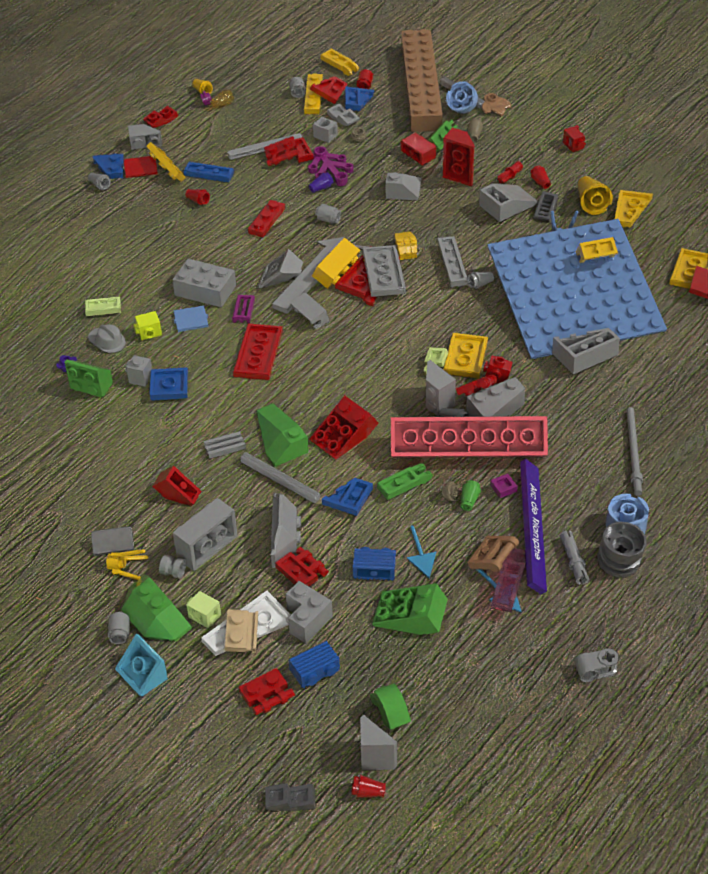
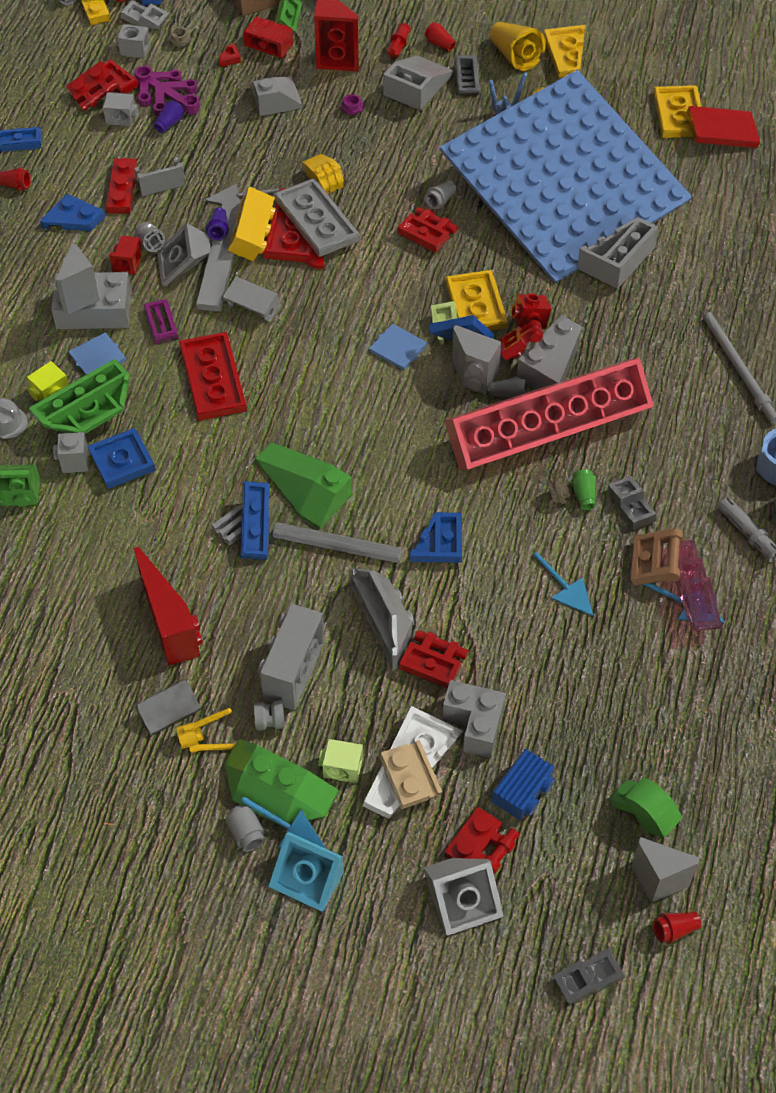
camera: 25 degrees left, 10 degrees up
(138, 488) = (175, 625): none -> red slope
(152, 639) = (299, 827): none -> dark azure piece
(162, 341) = (86, 401): none -> bright green wedge
(176, 487) = (213, 601): red slope -> none
(190, 264) = (76, 281): none -> light grey slope
(224, 227) = (73, 214): none -> blue wing
(231, 446) = (254, 520): none -> blue tile
(234, 716) = (463, 893): none -> light grey slope
(243, 261) = (126, 255): none -> red brick
(255, 148) = (56, 89): light grey axle -> none
(262, 250) = (150, 237): none -> light grey wheel
(291, 170) = (120, 109): none -> light grey brick
(293, 220) = (160, 179): none -> light grey hinge
(312, 257) = (217, 226): none -> dark purple cone
(328, 213) = (201, 157): light grey brick -> none
(343, 428) = (383, 449): red slope -> none
(374, 563) = (522, 620): blue brick -> none
(386, 155) = (229, 56): none -> red tile
(394, 368) = (398, 347): none -> medium blue piece
(404, 481) = (494, 497): bright green hinge -> none
(412, 609) = (598, 667): bright green slope -> none
(442, 362) = (445, 328): none -> blue wing
(452, 206) = (352, 104): none -> magenta plate
(452, 261) = (393, 180): light grey plate -> none
(458, 299) = (427, 229): none -> red plate
(499, 514) = (631, 502): none -> flat silver slope
(503, 485) = (618, 462): magenta plate -> none
(533, 527) = (682, 506): dark purple tile -> none
(596, 249) = (577, 118): yellow hinge -> none

